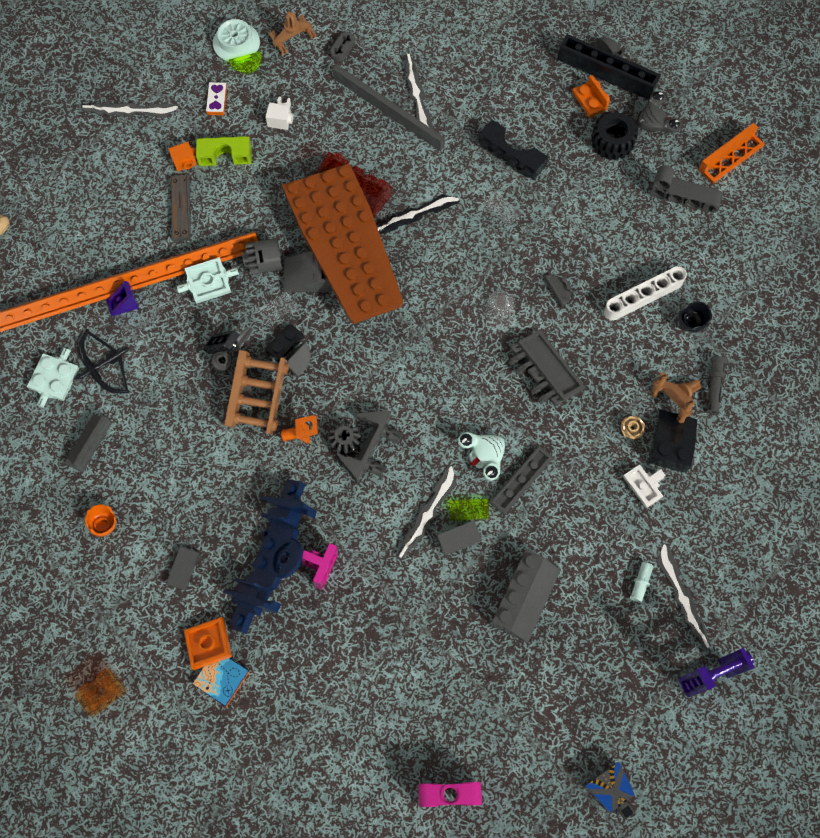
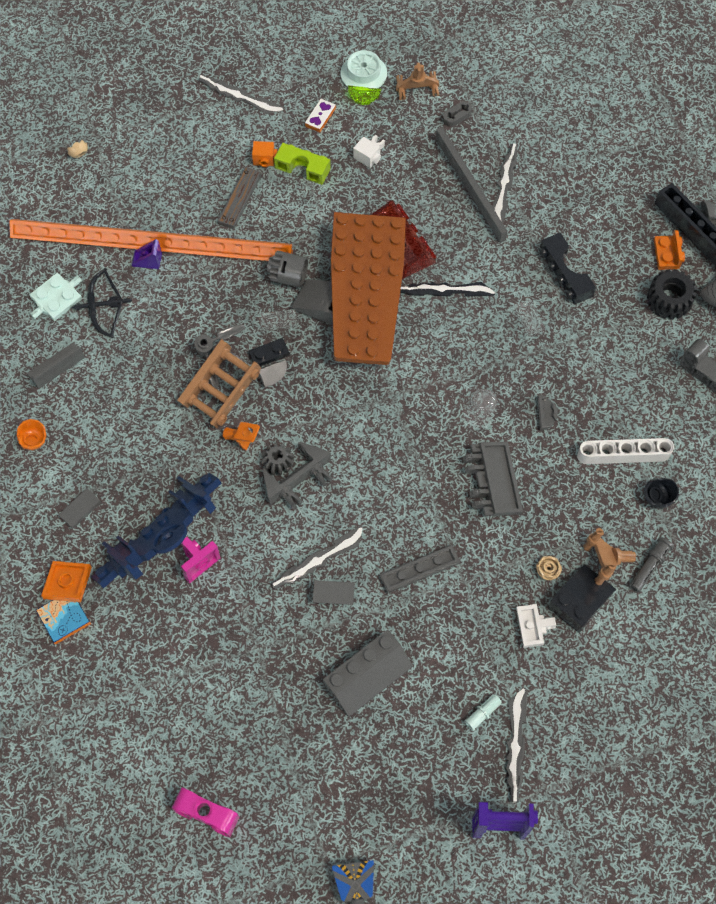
camera: 25 degrees right, 5 degrees down
(207, 280) = (229, 269): light aqua plate -> none
(221, 342) = (211, 327): black plate -> none
(468, 509) = (357, 573): clear neon green tile -> none
(486, 452) = (398, 528): light aqua head -> none

